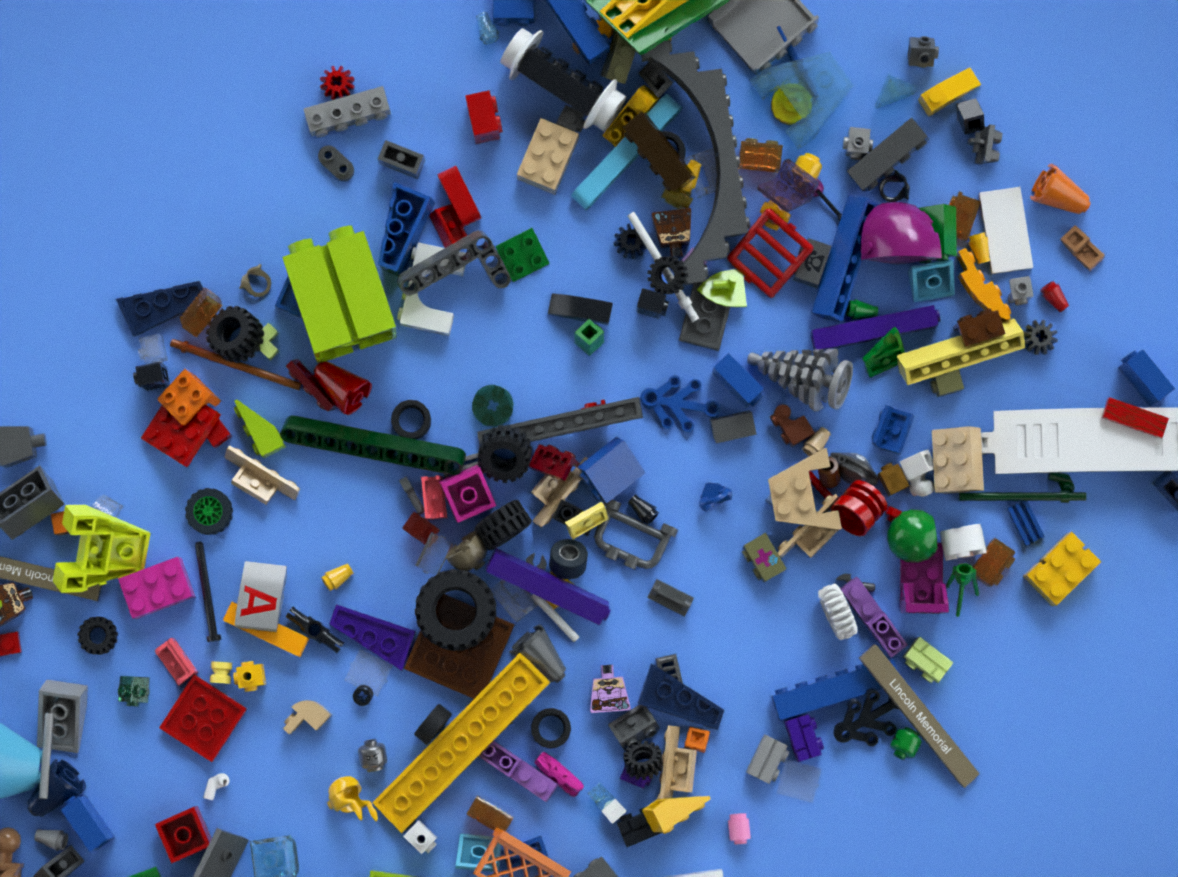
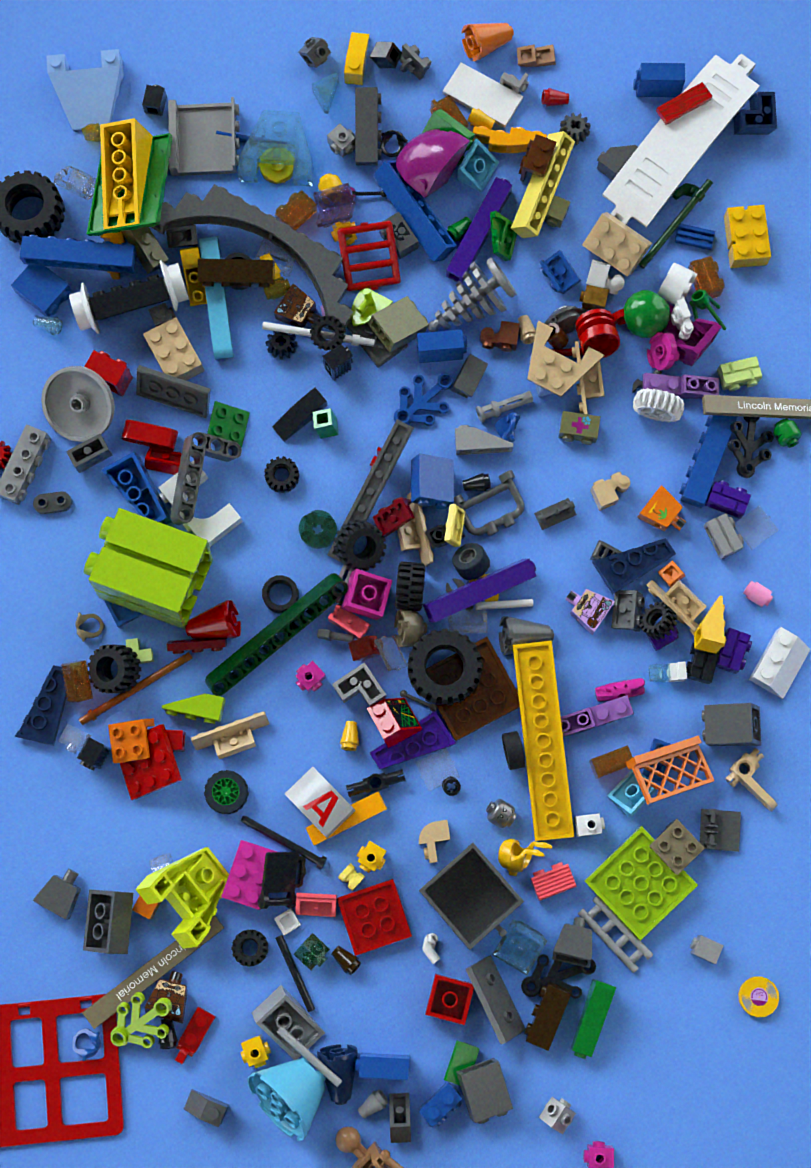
camera: 50 degrees left, 5 degrees down
(24, 706) = (258, 1044): none -> yellow brick
(106, 689) = (295, 973): none -> black bar
(143, 649) = (287, 921): none -> white tile
(150, 723) = (346, 960): none -> dark brown cone
(176, 613) = (281, 874): none -> black piece
(280, 785) = (471, 896): none -> dark grey piece
(349, 843) = (553, 881): none -> coral brick
(364, 508) = (310, 670): none -> dark pink brick
(379, 603) = (394, 720): none -> slope
(390, 551) = (359, 681): none -> light grey brick
(410, 592) = (433, 707): none -> dark grey hinge
(434, 114) = (77, 403): none -> light grey dish
(511, 185) = (173, 391): none -> dark grey plate
(515, 323) = (281, 485): none -> black tyre
(535, 728) = (582, 655): black tyre -> none
(670, 845) = (733, 652): none -> dark purple brick
(678, 477) = (475, 441): none -> light grey slope
(723, 469) = (496, 411): none -> light grey pin
(724, 624) = (604, 491): none -> tan brick
(729, 328) = (398, 324): none -> olive brick
(747, 689) = (662, 511): none -> orange torso
(891, 577) = (666, 343): none -> dark pink plate
(932, 569) = (681, 318): none -> white plate
(1020, 290) = (533, 113): light grey bracket -> none
(1037, 246) = (513, 83): none -> light grey bracket
(1038, 396) = (614, 159): none -> dark grey slope

